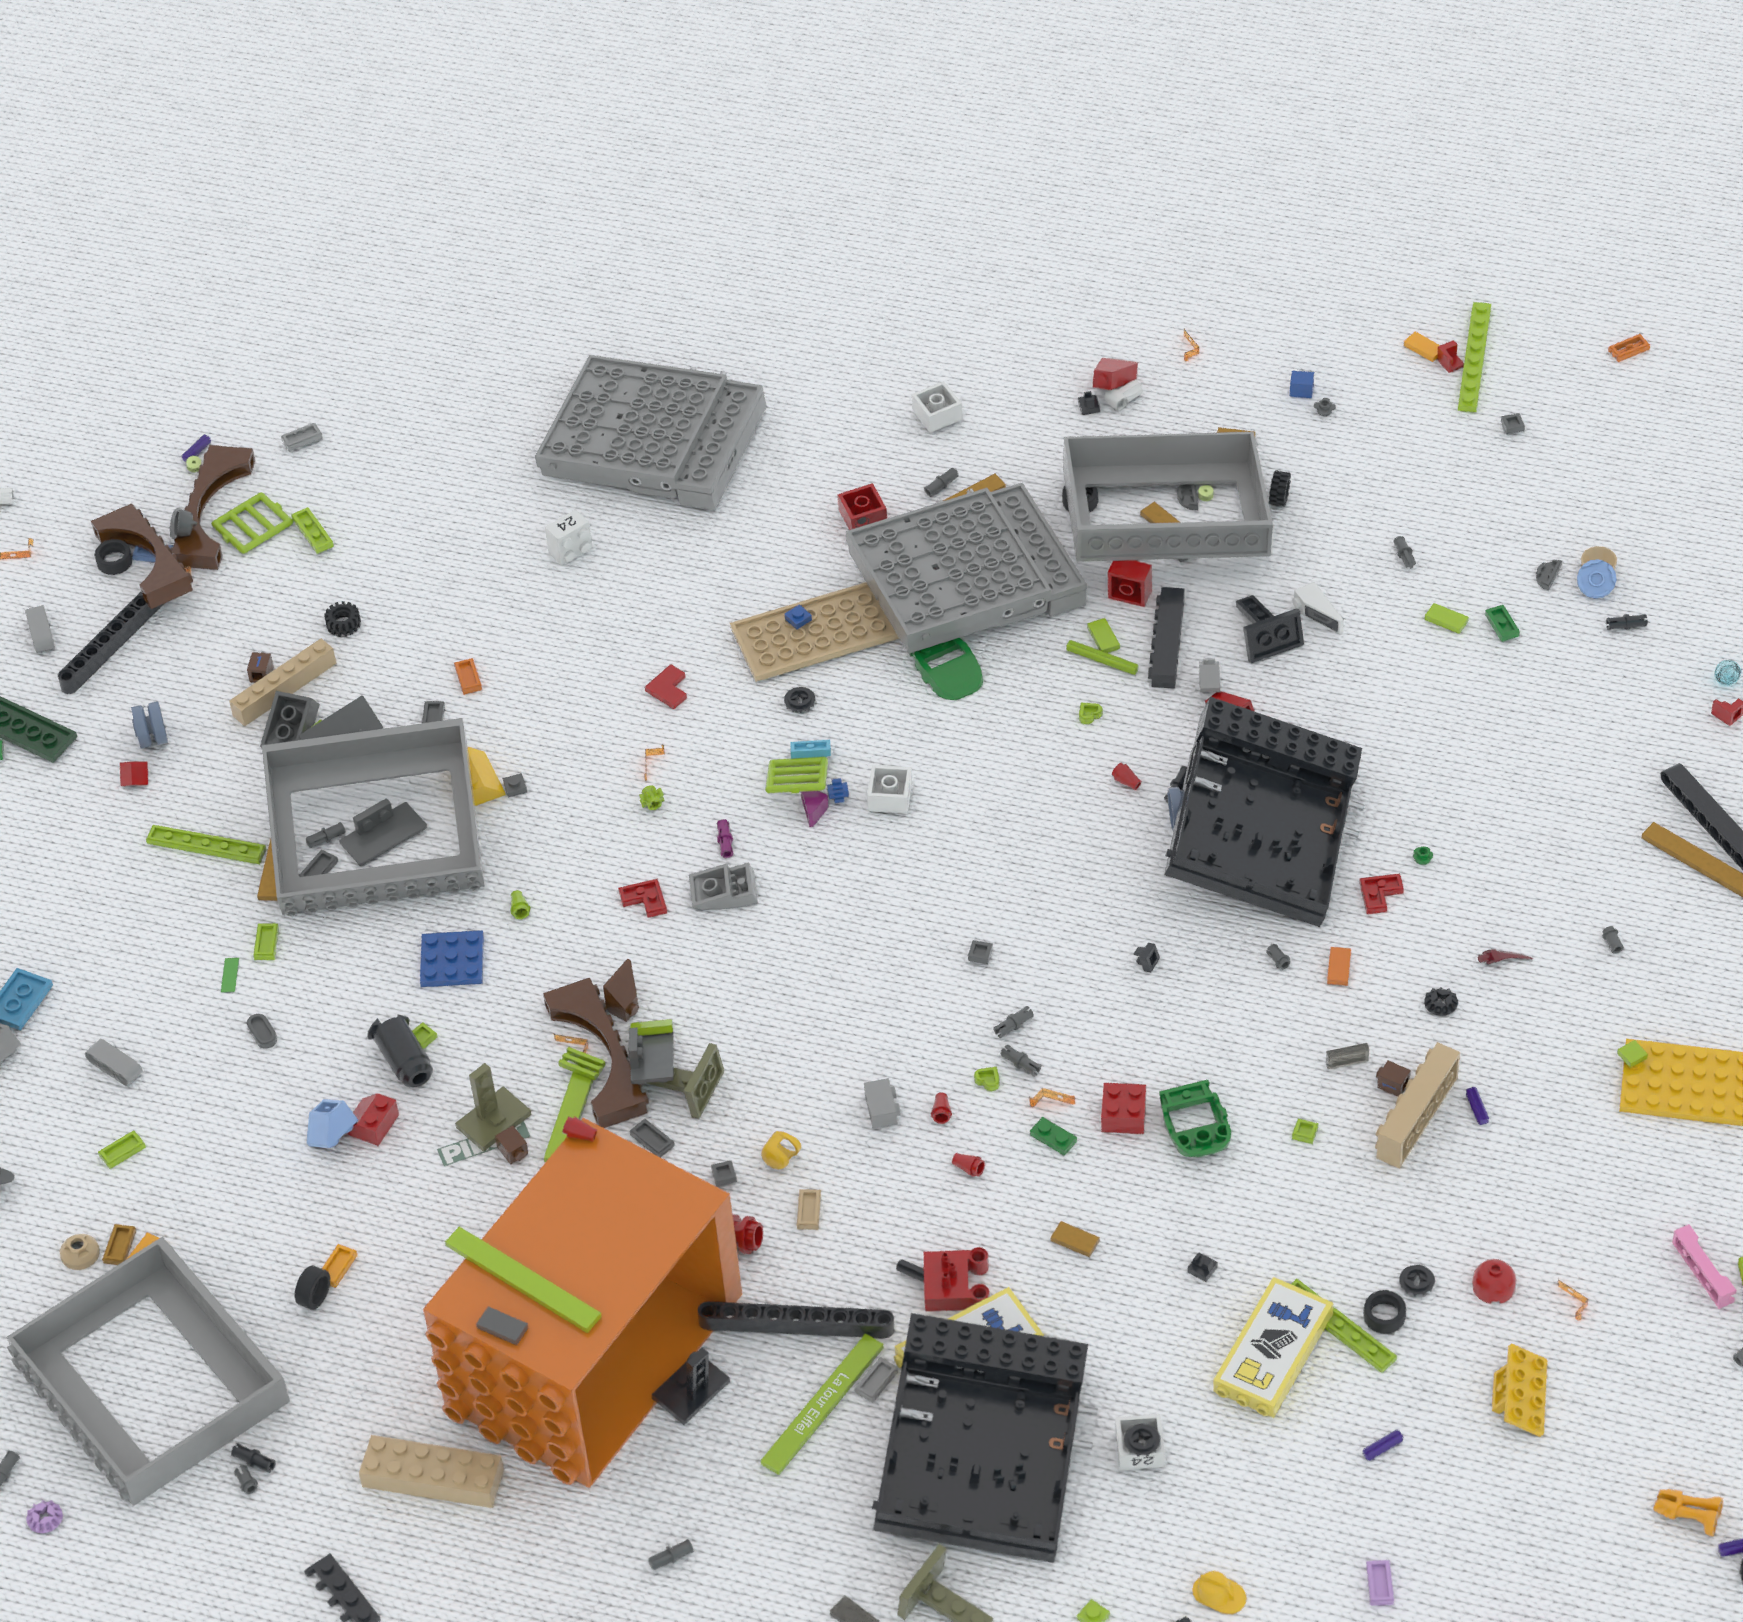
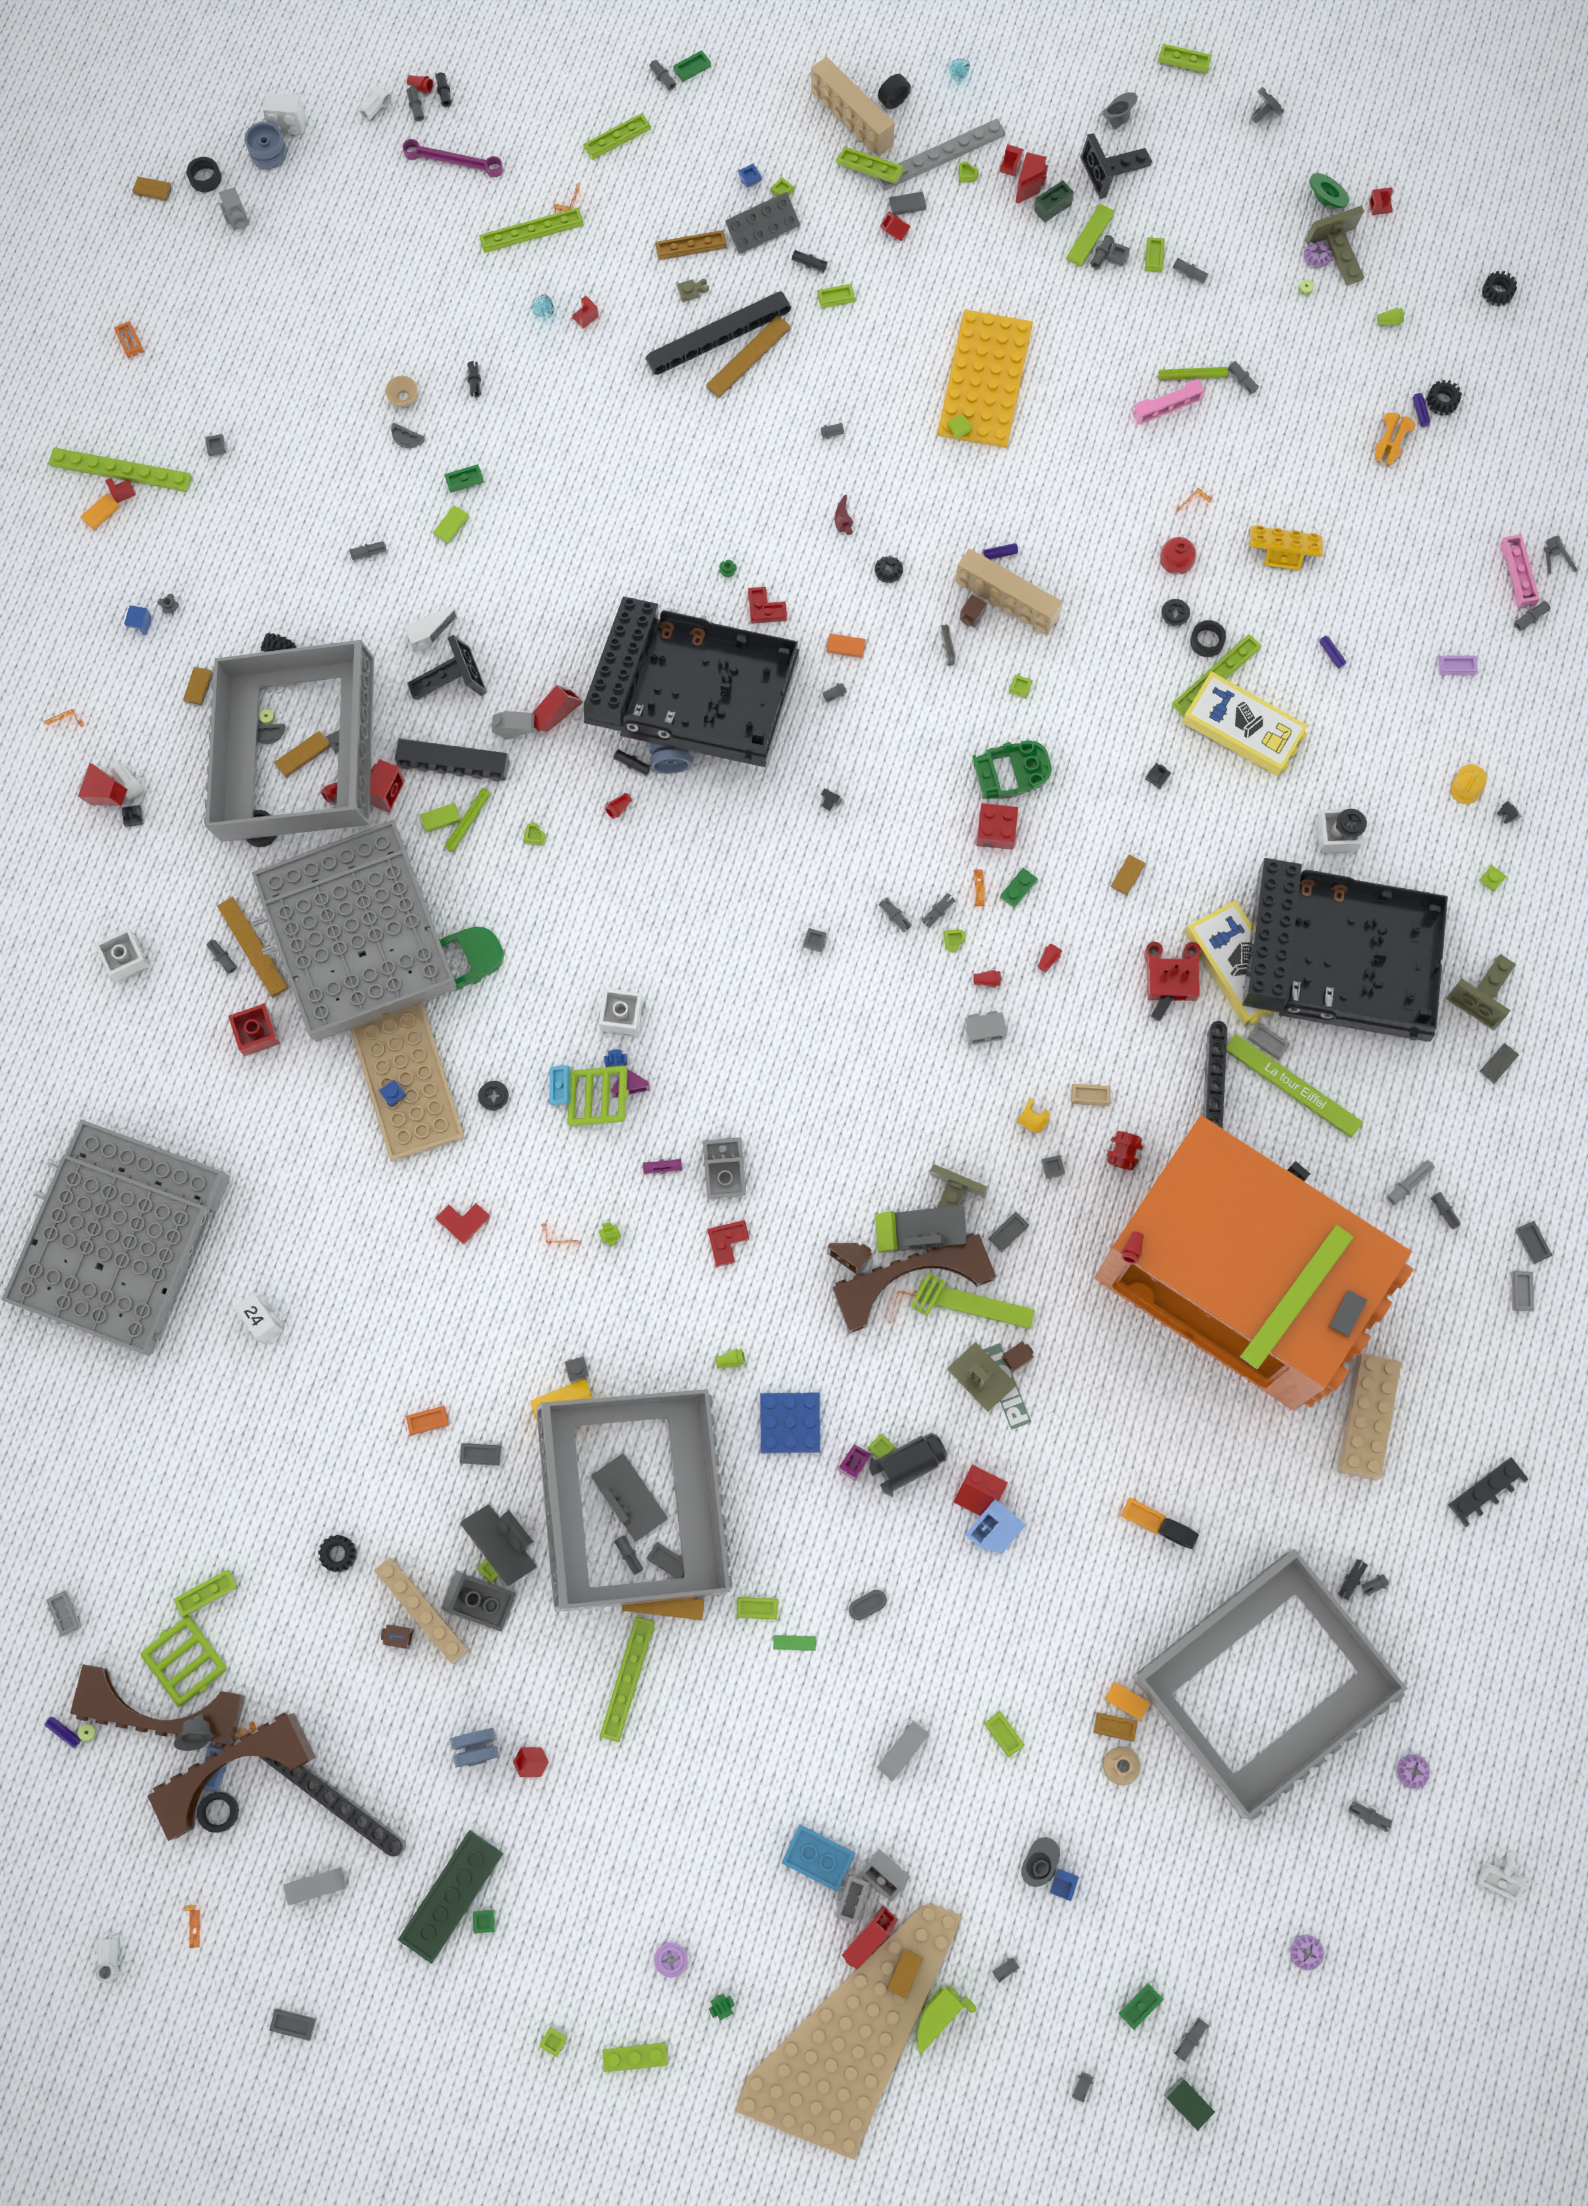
camera: 90 degrees left, 25 degrees up
(403, 1004) = (854, 1462): none -> magenta slope
(706, 1520) = (1410, 1182): none -> light grey axle
(1596, 579) = (424, 395): light blue tile -> none

